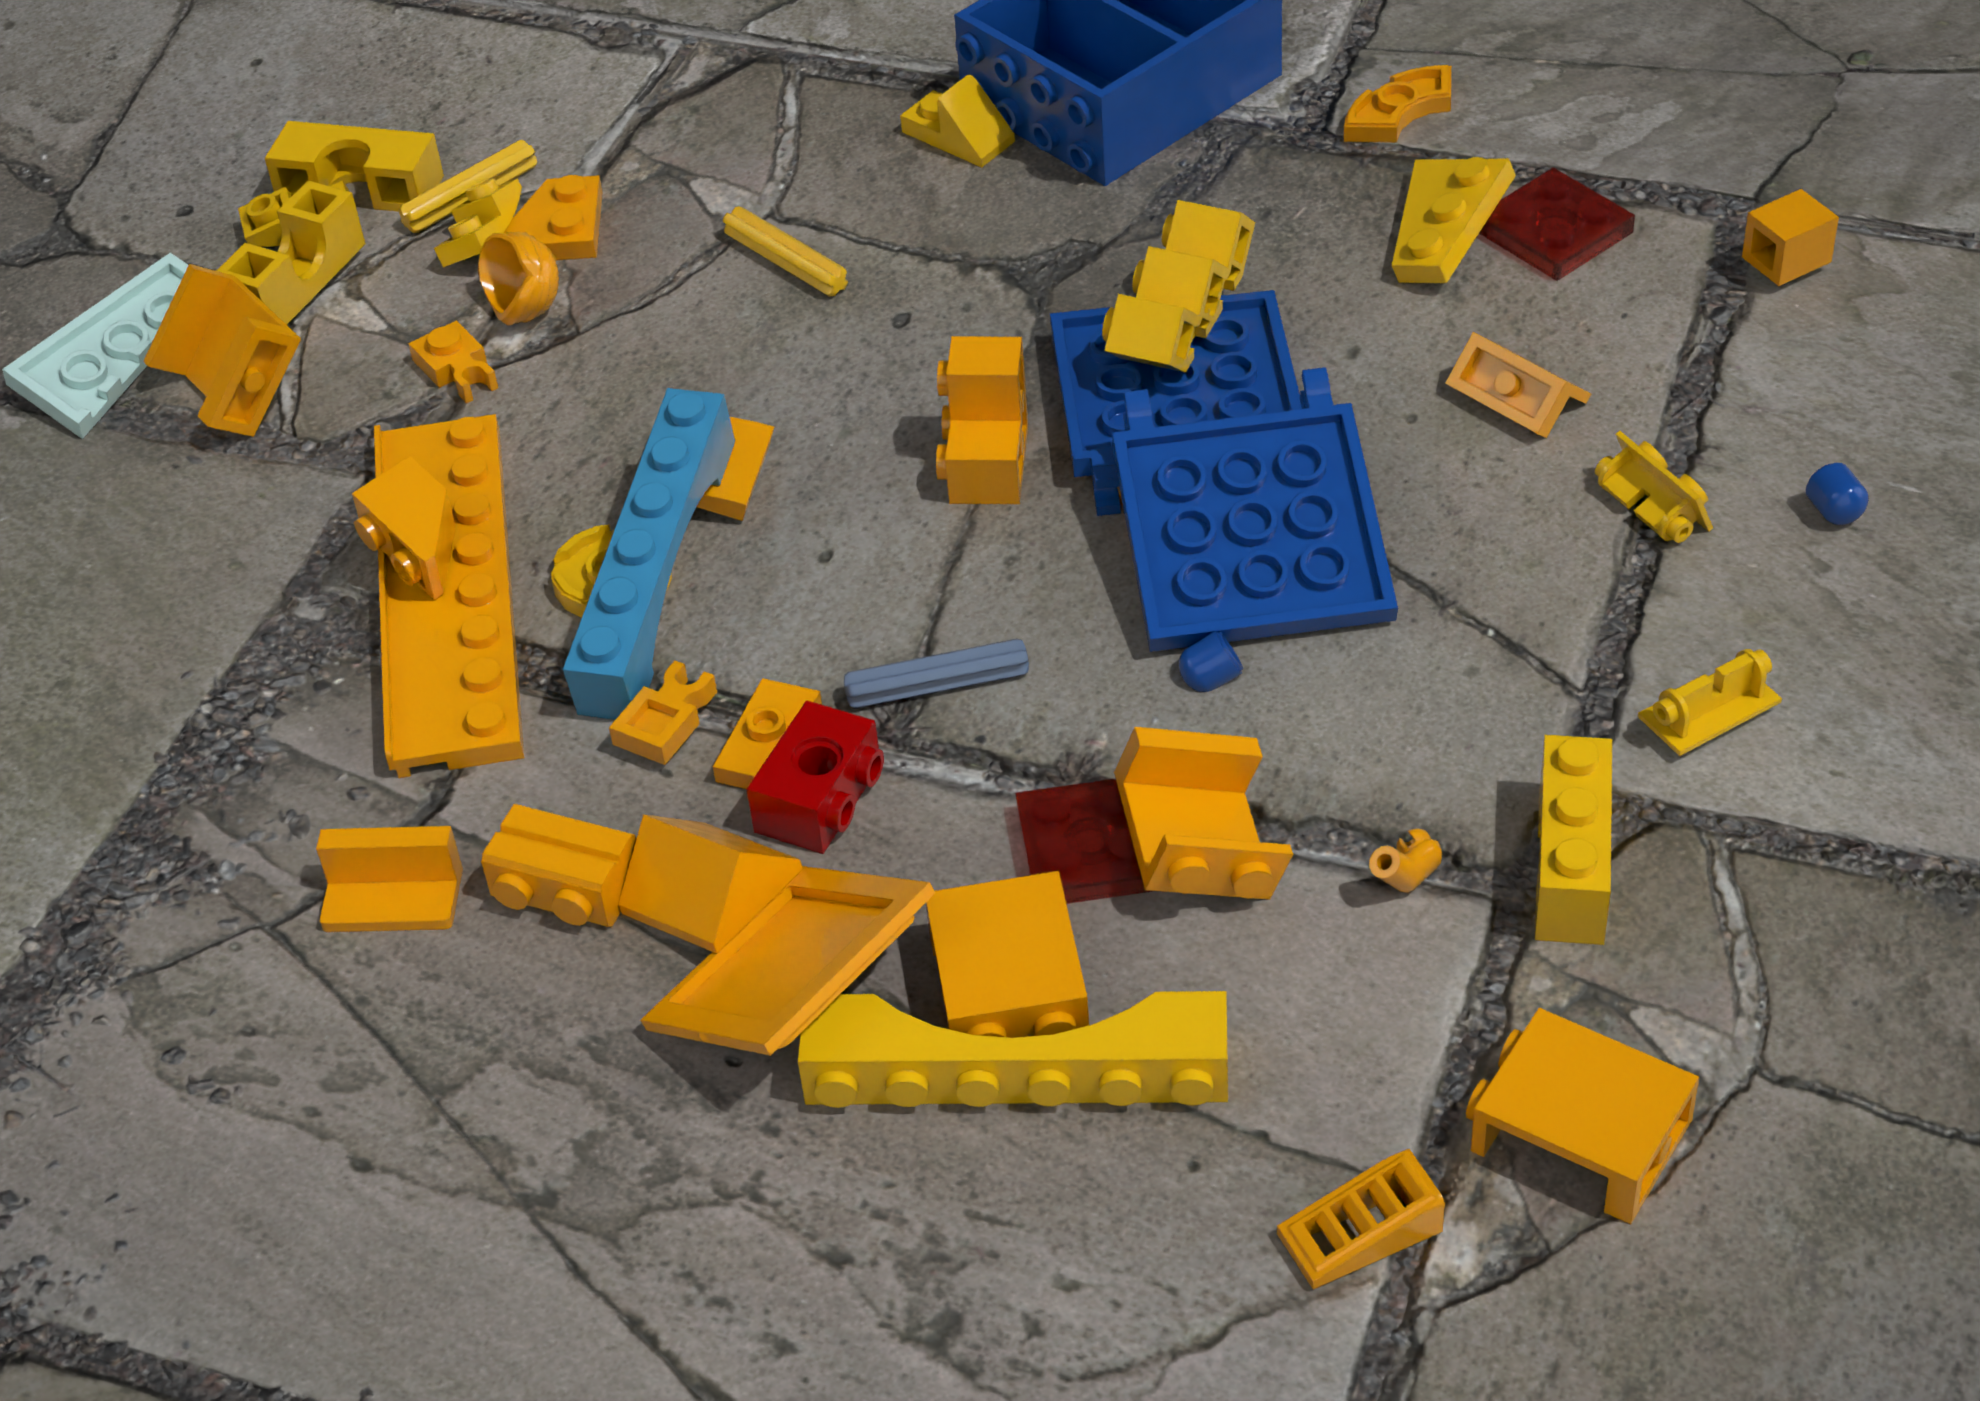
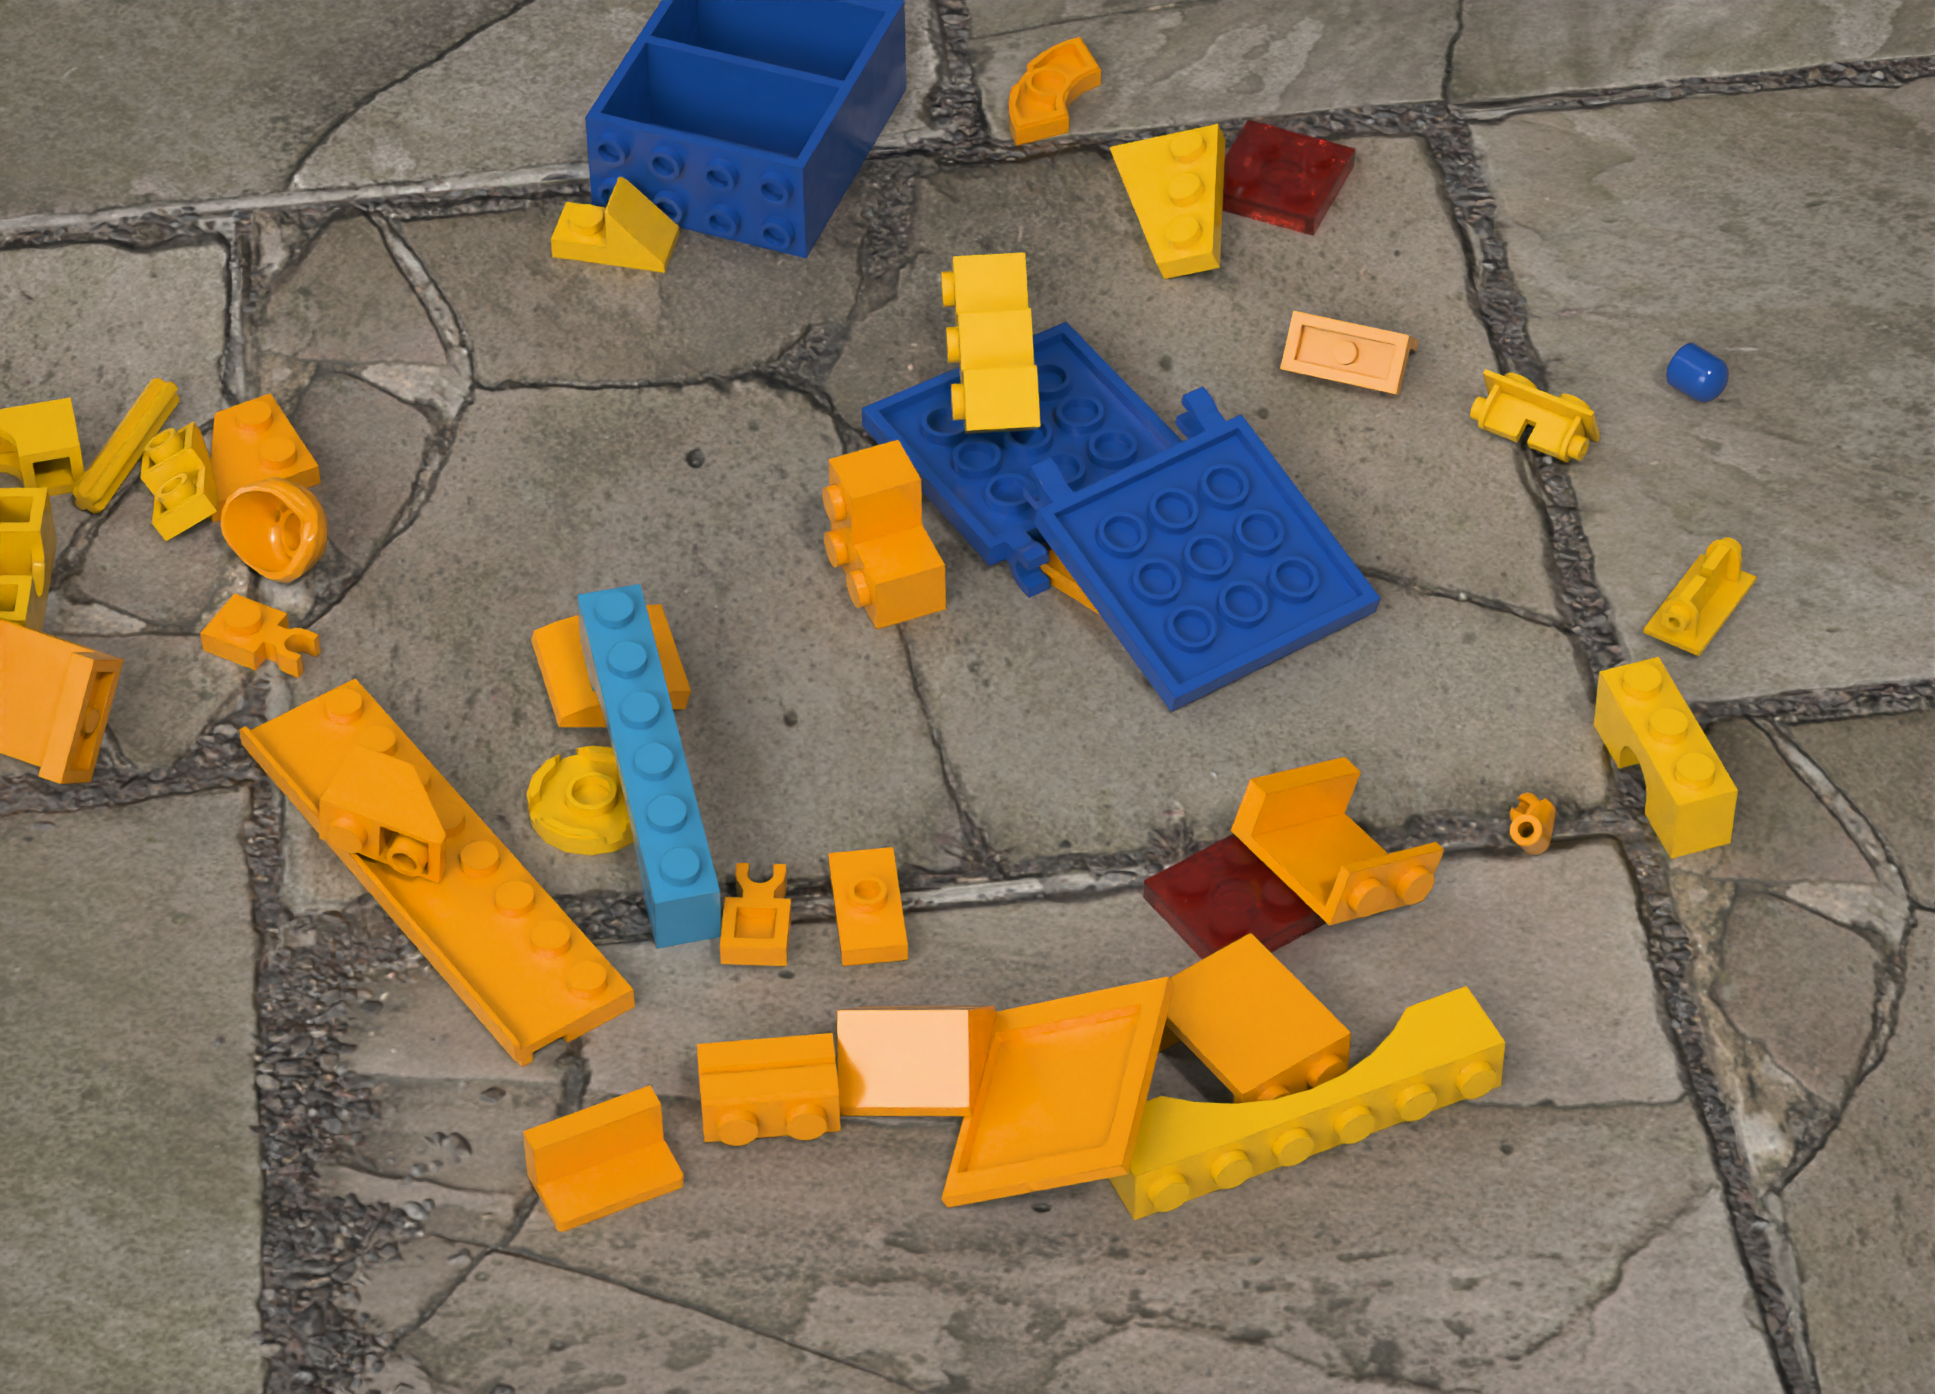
camera: 30 degrees left, 0 degrees up
(785, 251) = (530, 419): yellow axle -> none
(815, 777) = (951, 927): red brick -> none
(936, 673) = (987, 796): sand blue axle -> none
(1209, 663) = (1236, 704): blue piece -> none
(1378, 1187) = (1706, 1102): light orange slope -> none
(1587, 1104) = (1810, 974): light orange panel -> none
(1790, 237) = (1517, 133): light orange brick -> none

